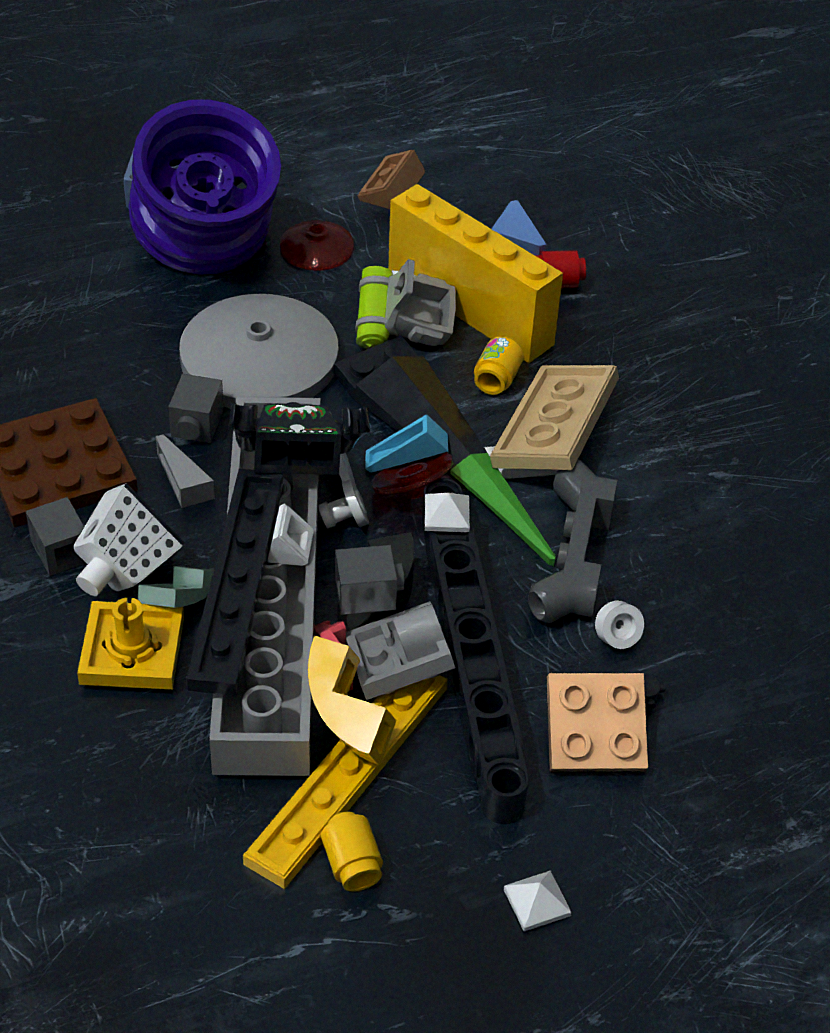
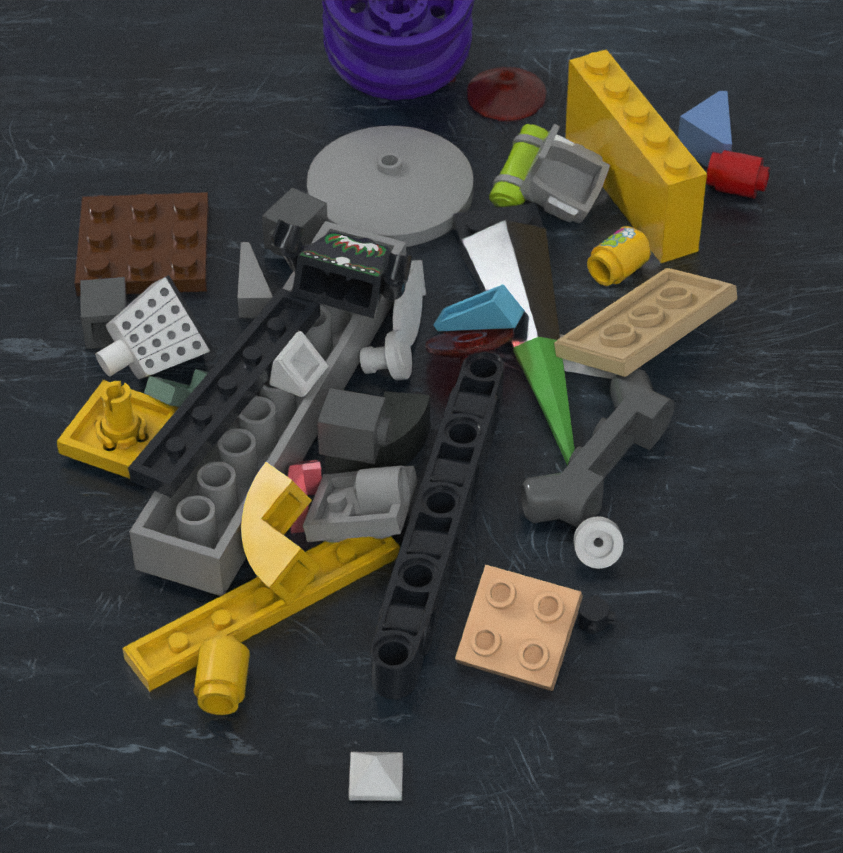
camera: 25 degrees right, 0 degrees up
(391, 178) = (624, 40): medium nougat slope -> none
(447, 512) = (473, 385): white slope -> none

